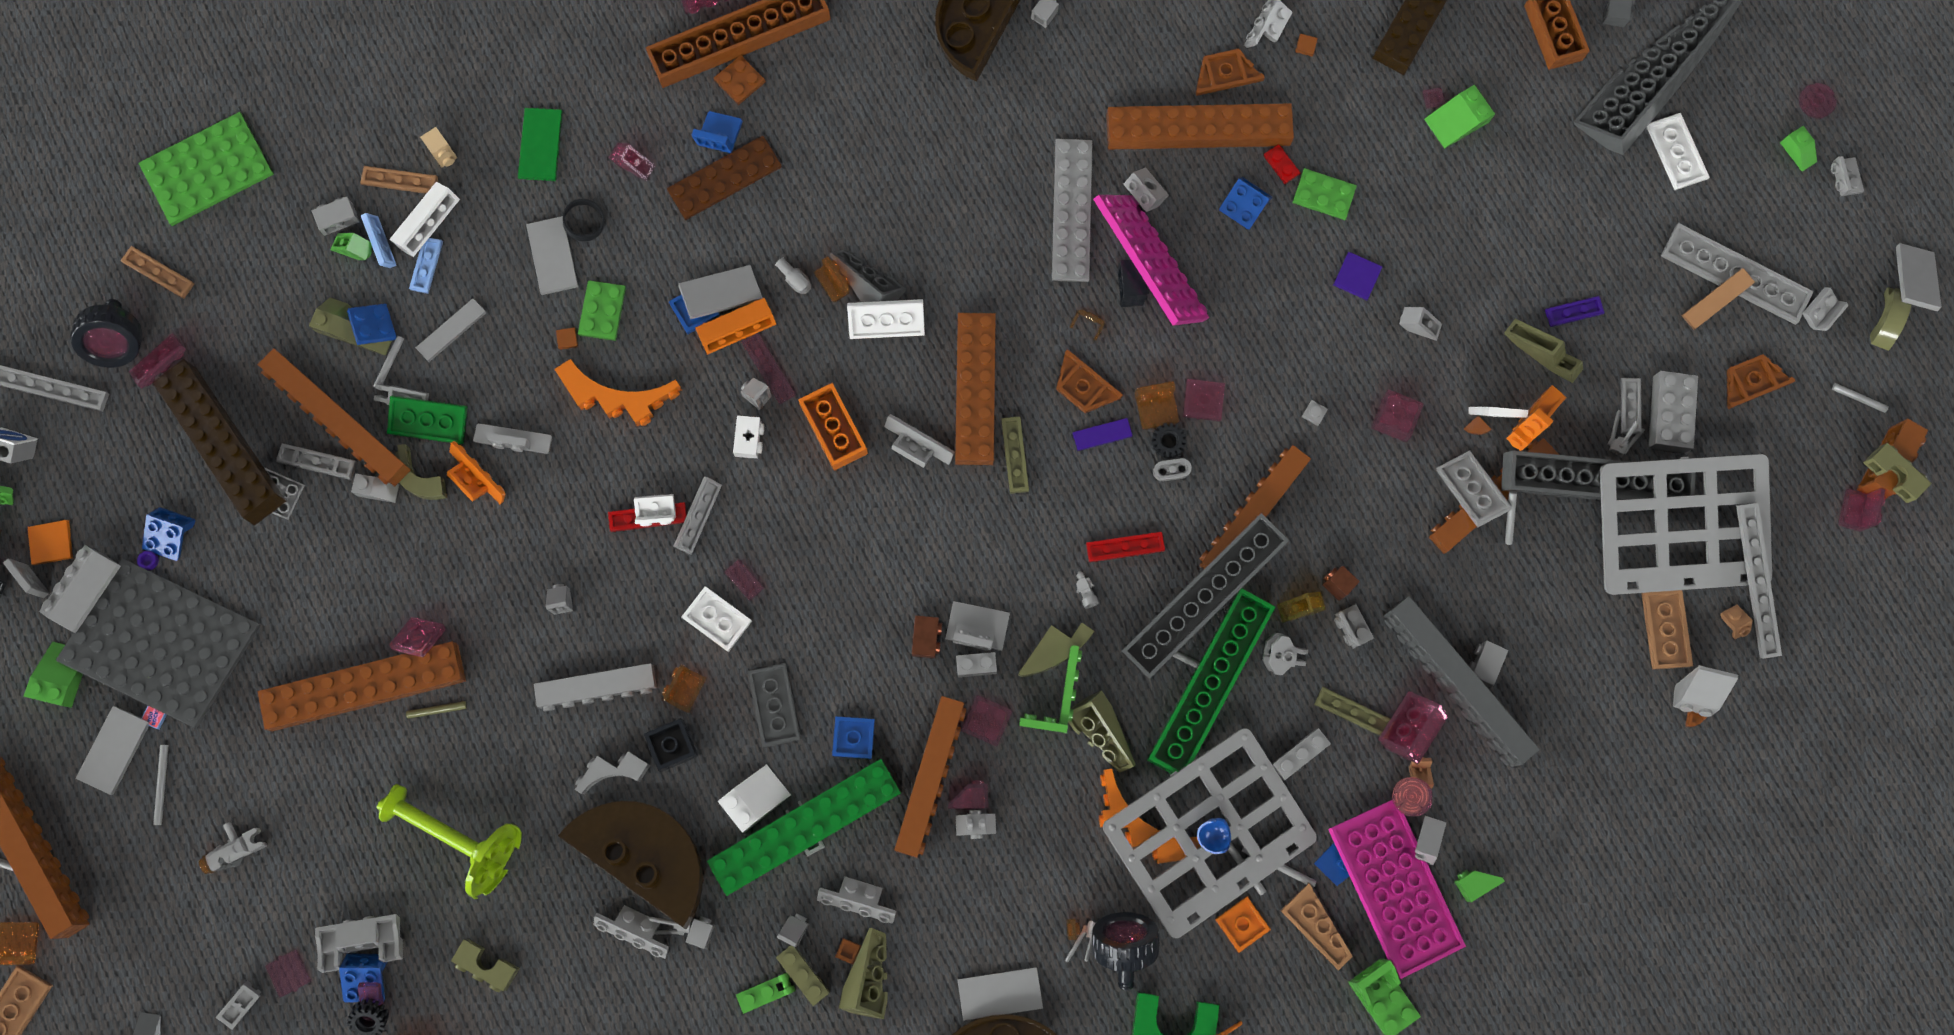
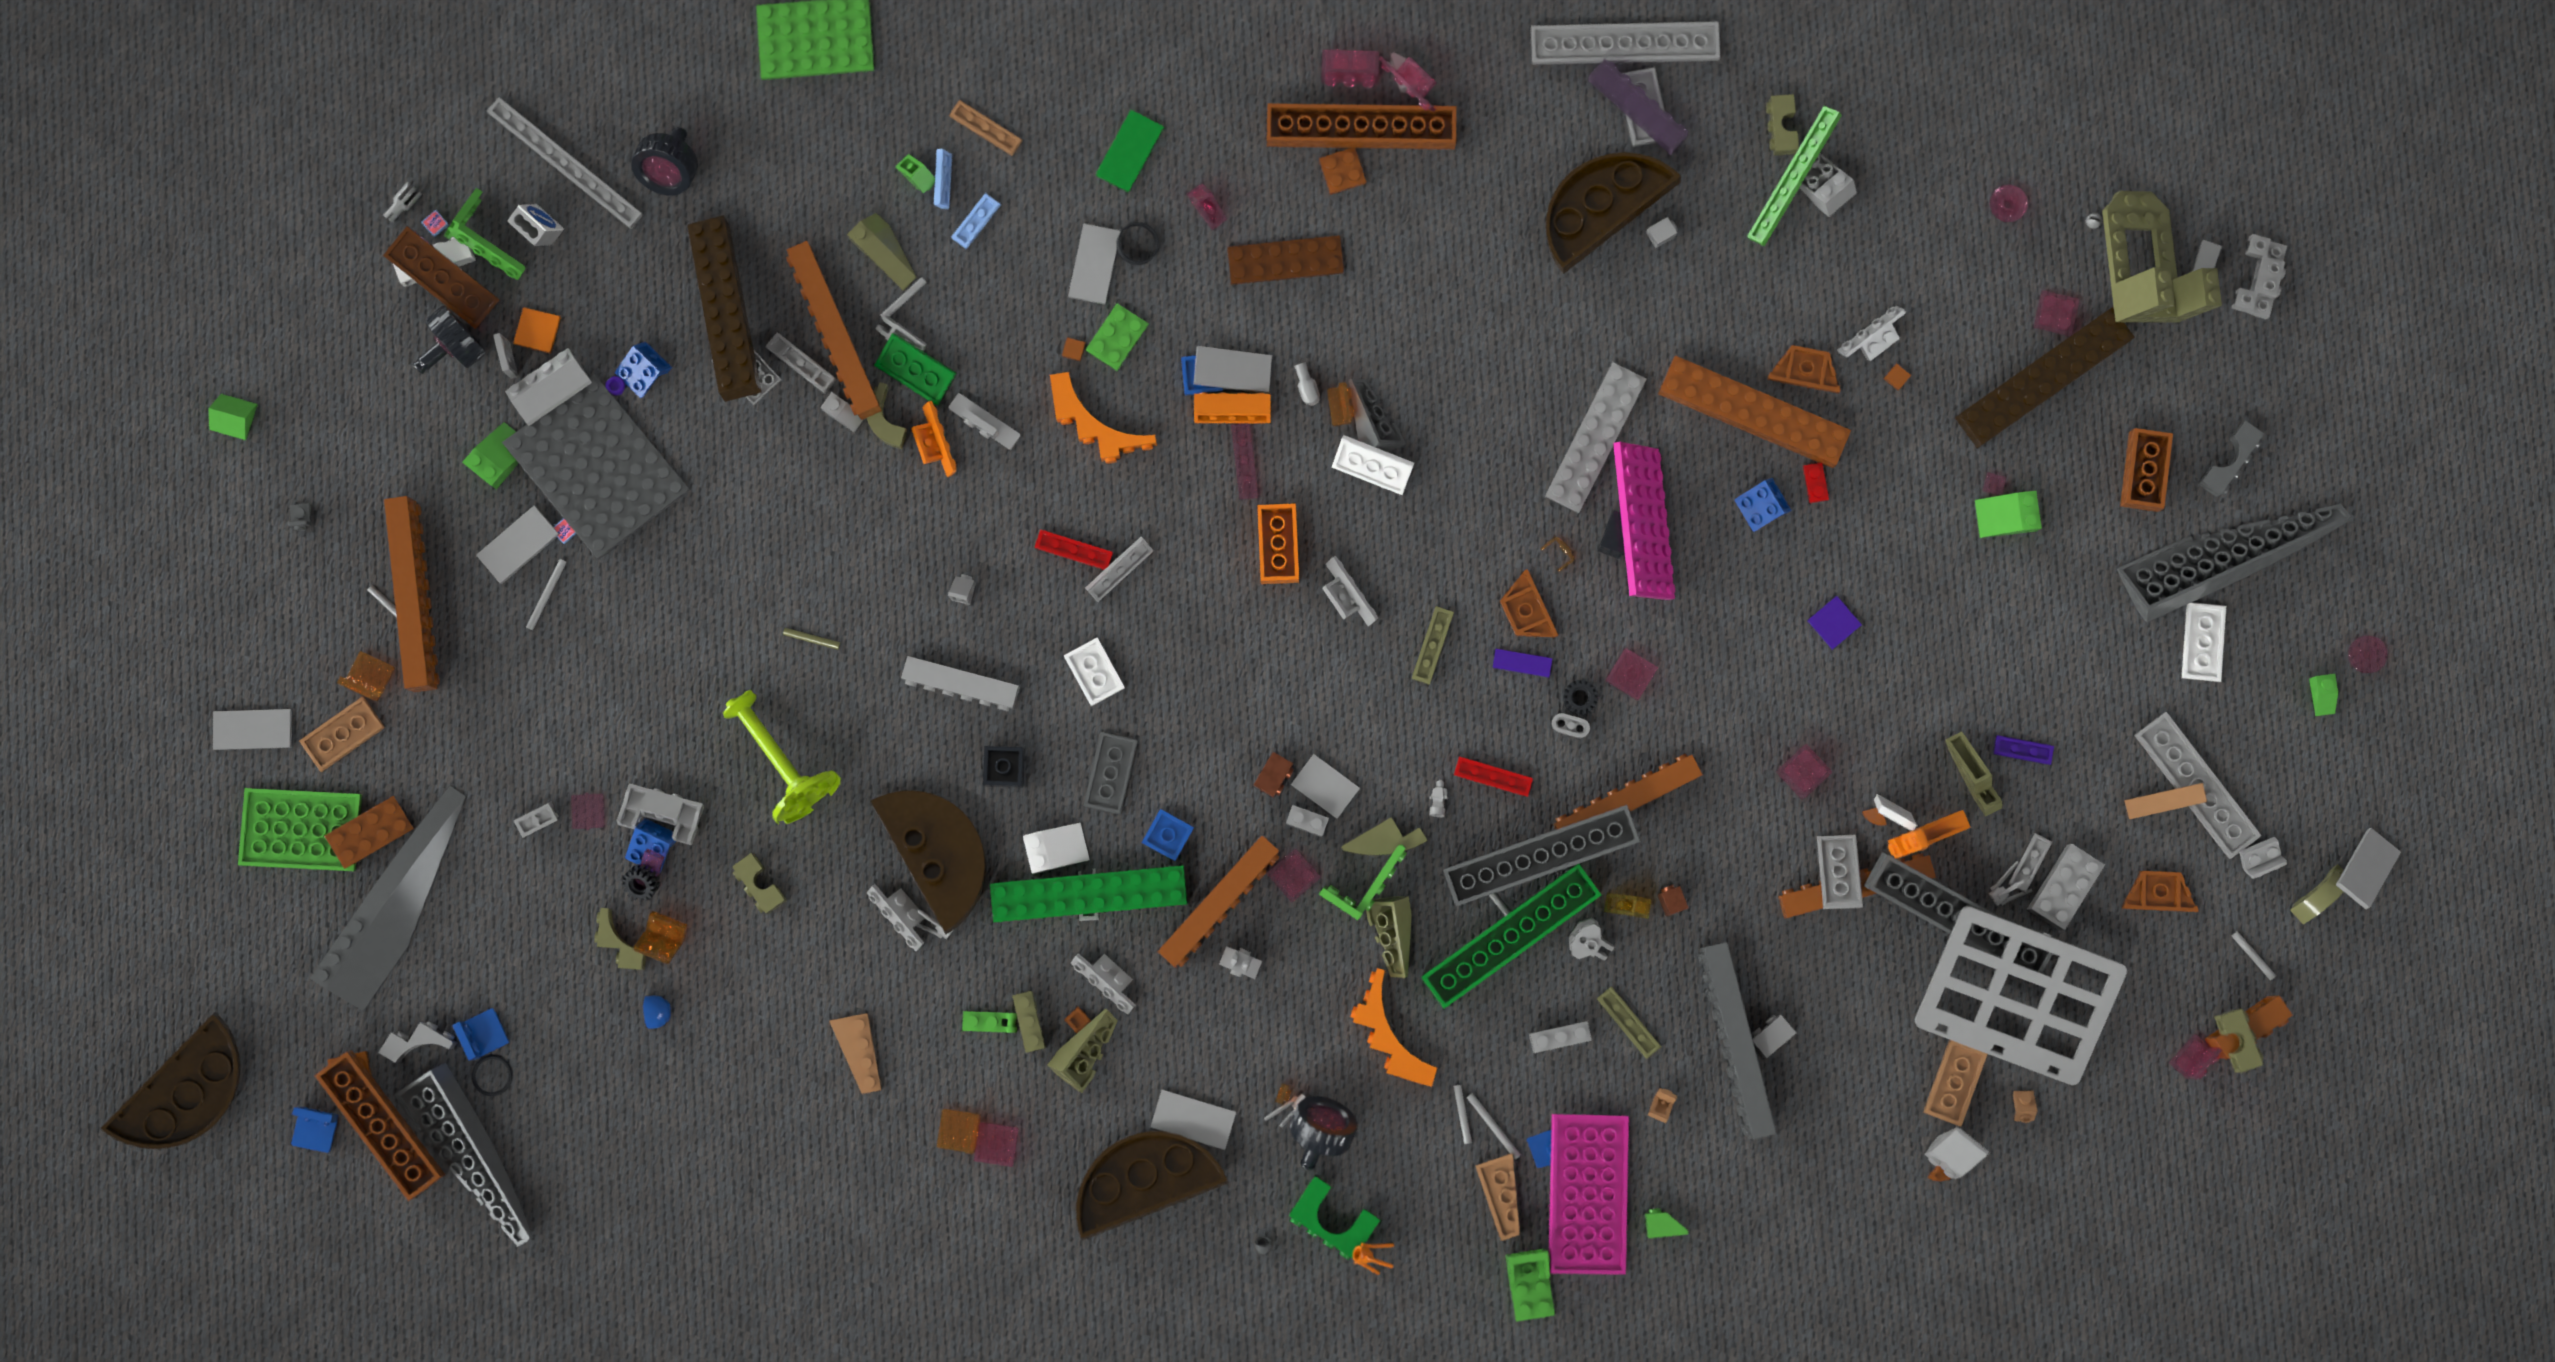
camera: 30 degrees right, 5 degrees up
(157, 272) = (731, 118): medium nougat tile -> none
(157, 361) = (698, 205): clear pink plate -> none
(233, 852) = (584, 683): light grey piece -> none
(335, 215) = (913, 137): light grey brick -> none
(360, 687) = (756, 588): dark orange brick -> none
(371, 324) = (903, 256): blue plate -> none
(417, 637) = (823, 566): clear pink plate -> none
(424, 219) = (993, 178): white brick -> none
(439, 147) = (1035, 116): tan brick -> none
(451, 330) = (972, 293): light grey tile -> none
(599, 769) = (932, 759): light grey arch -> none
(654, 509) = (1083, 547): white bracket -> none
(683, 688) = (1037, 721): clear orange bracket -> none
(700, 932) = (956, 943): light grey brick -> none
(718, 132) = (1299, 214): blue bracket -> none
(744, 580) = (1134, 647): clear pink tile -> none
(745, 426) = (1197, 506): white brick -> none
(756, 392) = (1222, 479): light grey slope -> none
(793, 930) = (1038, 979): light grey slope -> none
(971, 797) = (1248, 936): clear pink slope -> none
(973, 637) = (1316, 795): light grey bracket -> none
(975, 389) = (1424, 567): dark orange brick -> none
(1146, 189) = (1673, 450): light grey brick -> none
(1156, 405) = (1585, 660): clear orange bracket -> none
(1214, 836) = (1446, 1071): blue helmet -> none
(1242, 924) = (1436, 1161): orange tile -> none
(1254, 868) = (1469, 1117): light grey door -> none
(1314, 412) = (1729, 733): light grey plate -> none
(1324, 194) = (1842, 530): bright green plate -> none
(1353, 626) = (1667, 945): light grey bracket -> none
(1412, 796) = (1642, 1121): clear pink tile -> none
(1413, 727) = (1674, 1061): clear pink brick -> none
(1420, 322) = (1870, 694): light grey slope -> none
(1430, 840) = (1639, 1166): light grey hinge -> none
(1510, 518) = (1860, 914): light grey bar -> none
(1759, 580) = (2062, 1078): light grey plate -> none
(1847, 176) = (2356, 740): light grey bracket -> none

